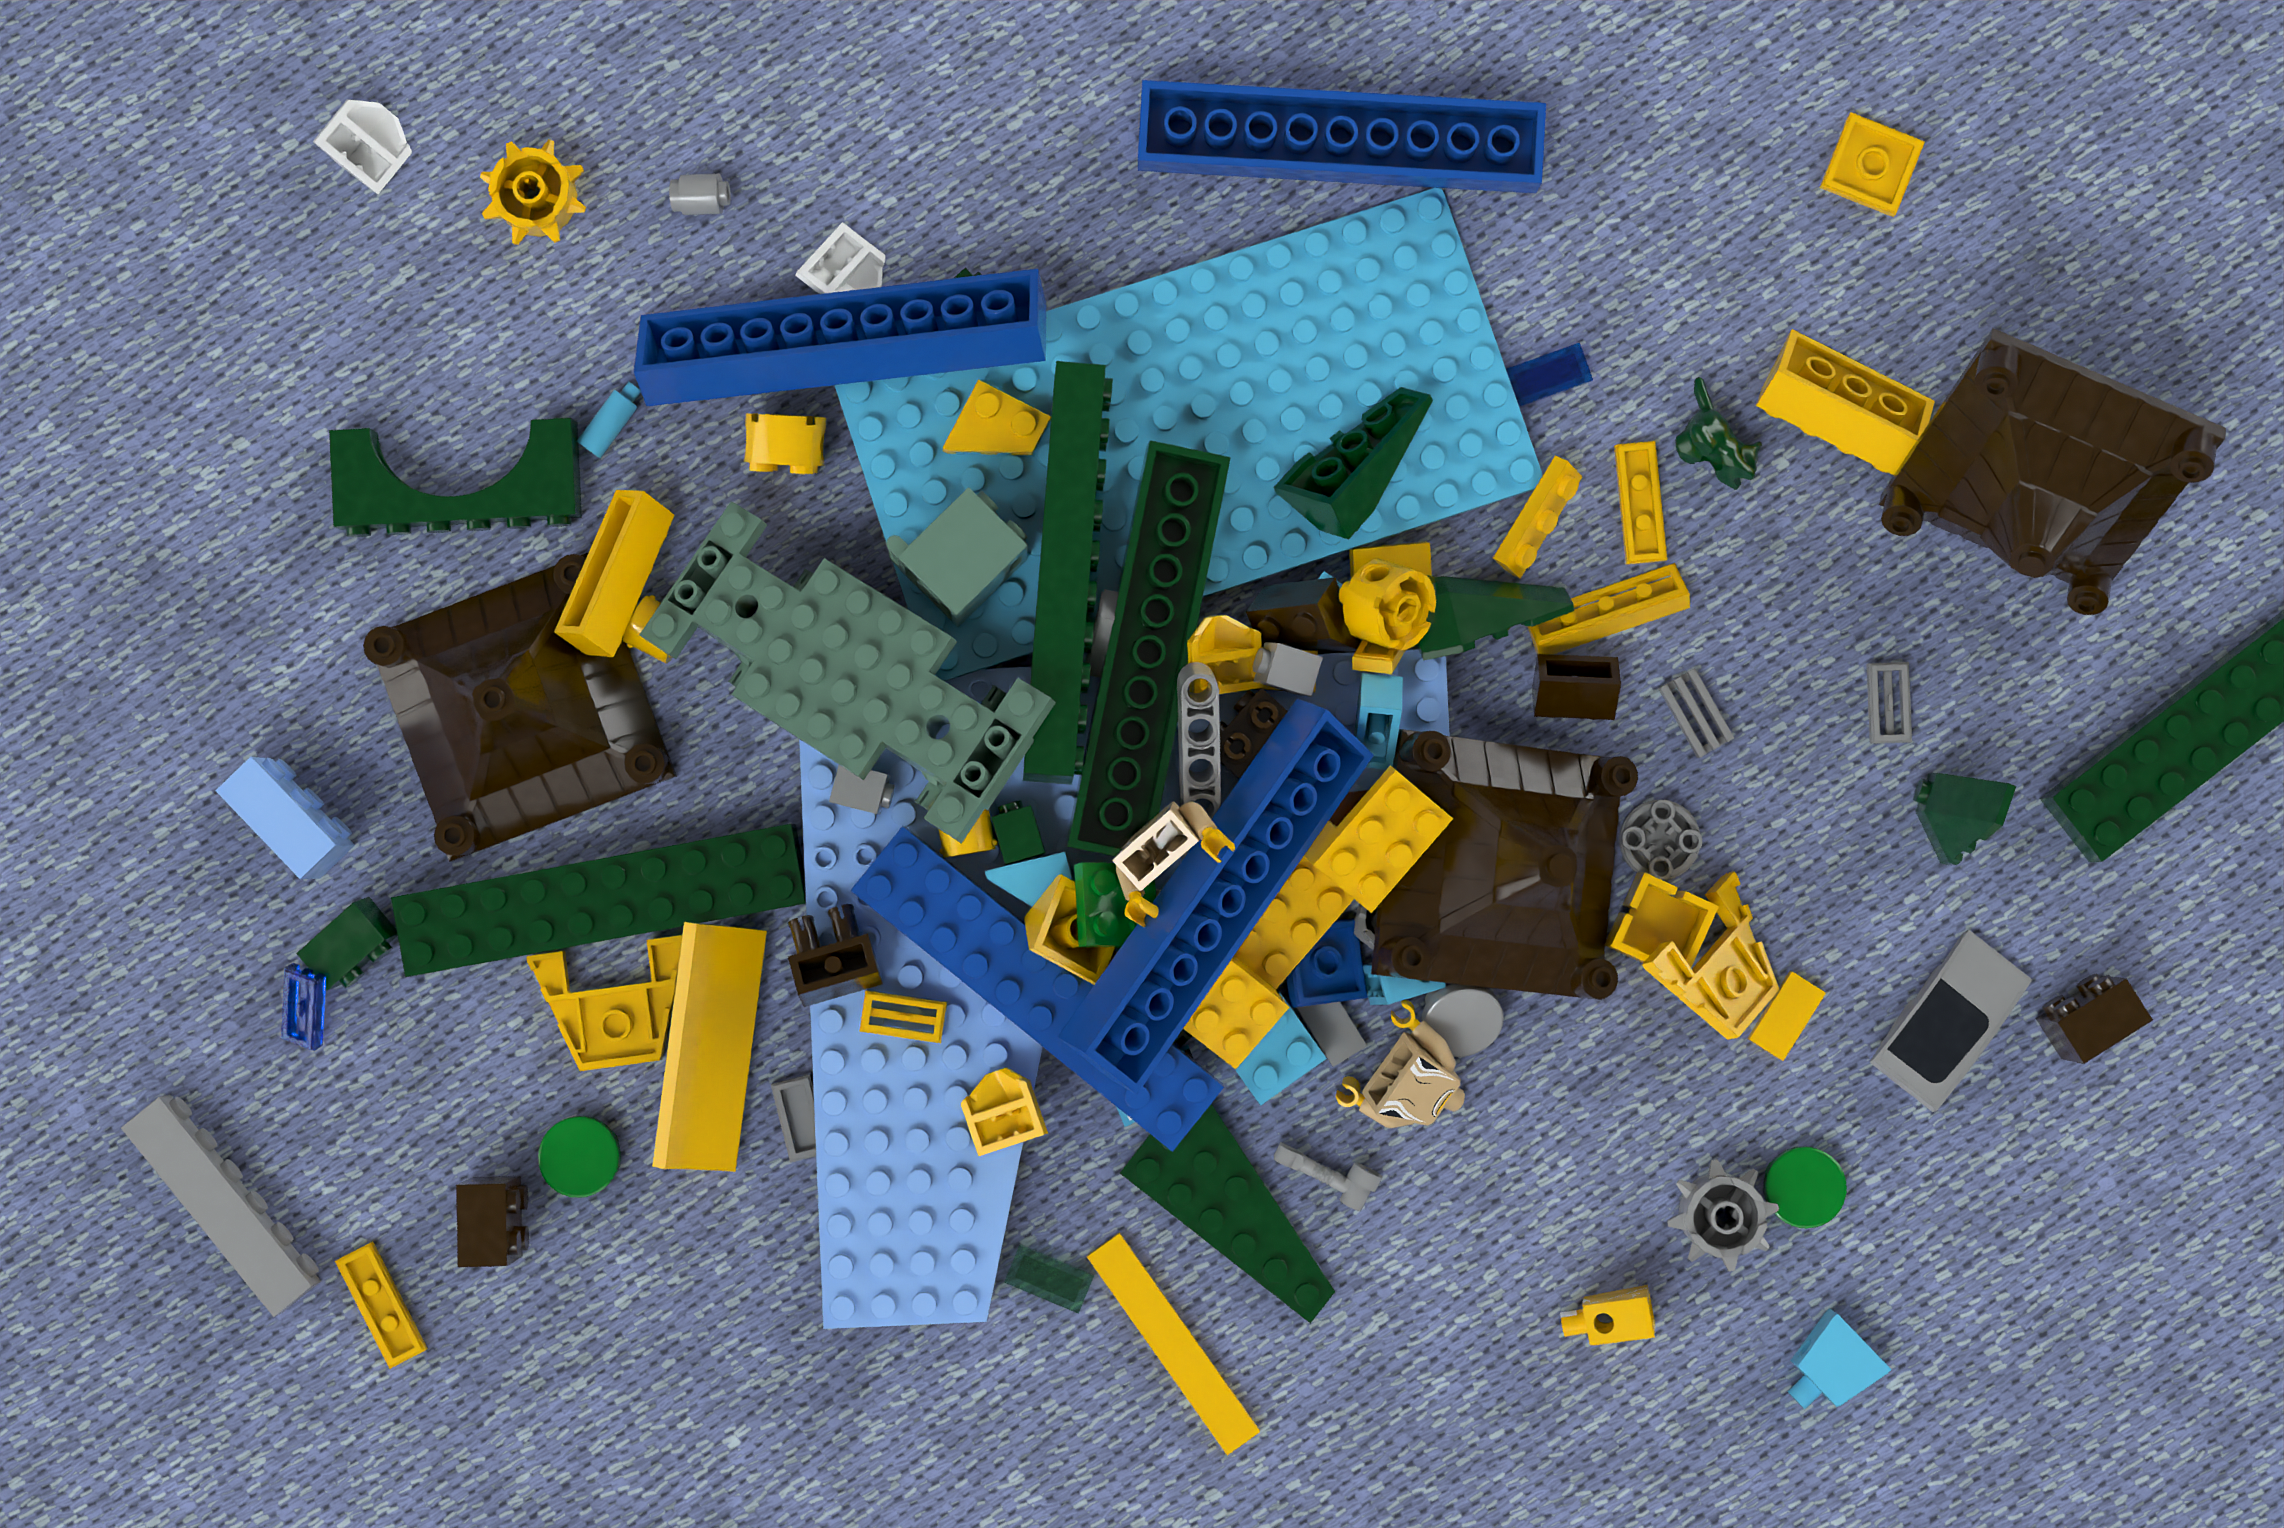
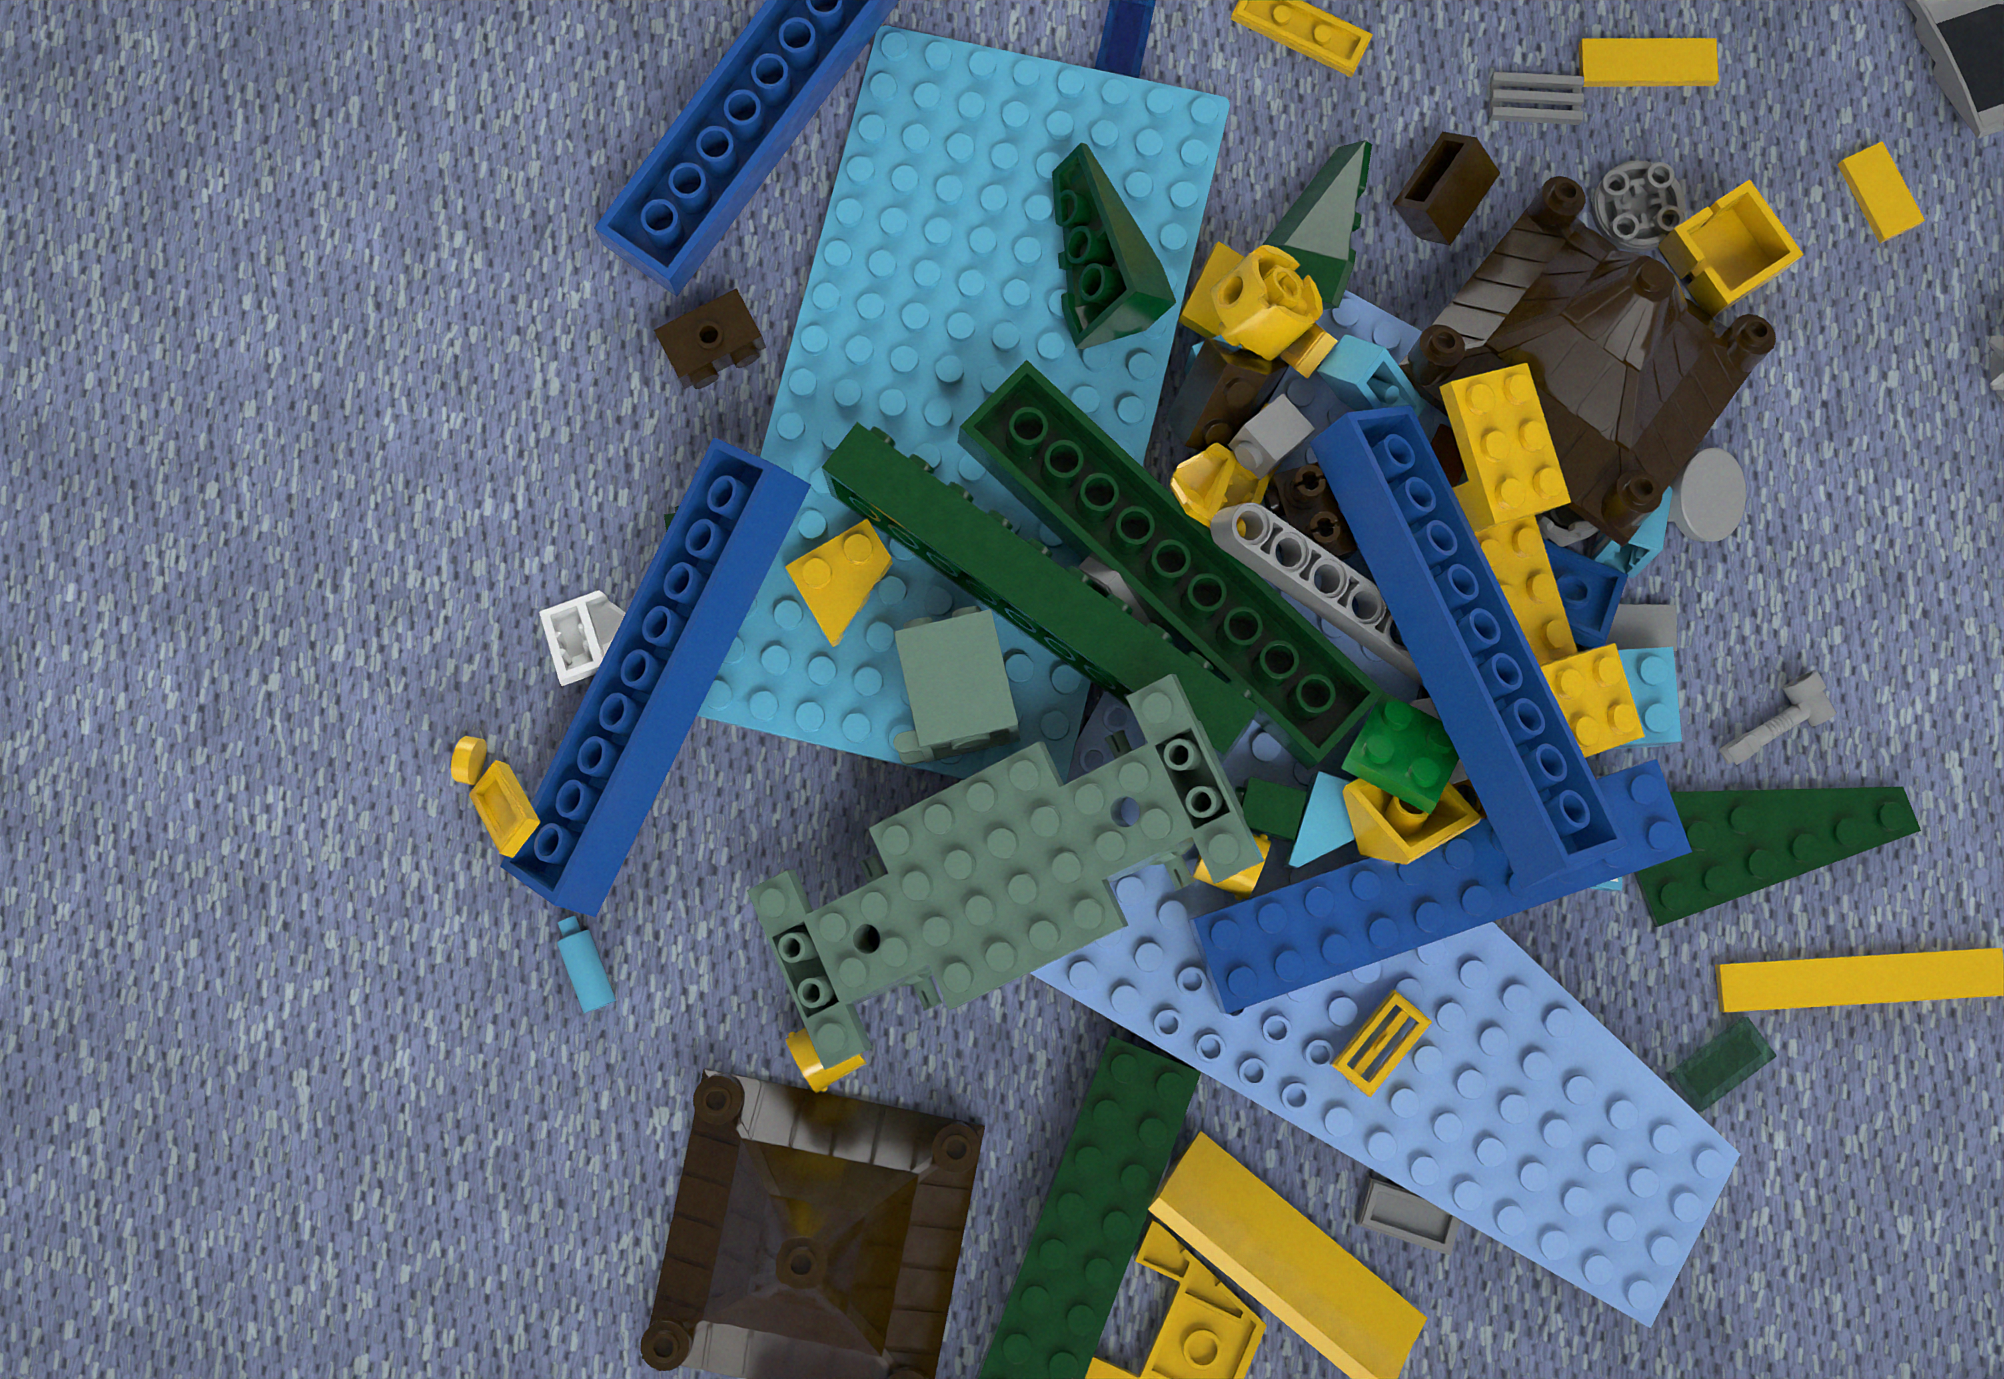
camera: 65 degrees left, 5 degrees down
(365, 142) = (141, 1039): white slope -> none
(524, 171) = (279, 892): yellow brick -> none
(537, 488) = (504, 1258): dark green arch -> none
(614, 573) = (744, 1057): yellow brick -> none
(683, 291) = (504, 808): none -> yellow tile
(699, 194) = (418, 733): light grey brick -> none
(703, 242) = (468, 760): none -> yellow tile
(784, 441) = (720, 802): yellow brick -> none
(833, 968) = (1295, 1082): dark brown brick -> none
(862, 795) = (1129, 945): light grey brick -> none
(1002, 1111) = (1542, 1000): yellow slope -> none
(1118, 217) = (711, 340): none -> dark brown brick
(1158, 847) = (1384, 664): tan torso -> none
(1411, 1081) = (1743, 581): tan torso -> none
(1538, 517) = (1258, 125): yellow plate -> none
(1615, 612) = (1392, 112): yellow slope -> none
(1731, 978) = (1820, 213): yellow wing -> none
(1779, 780) = (1648, 62): none -> yellow tile

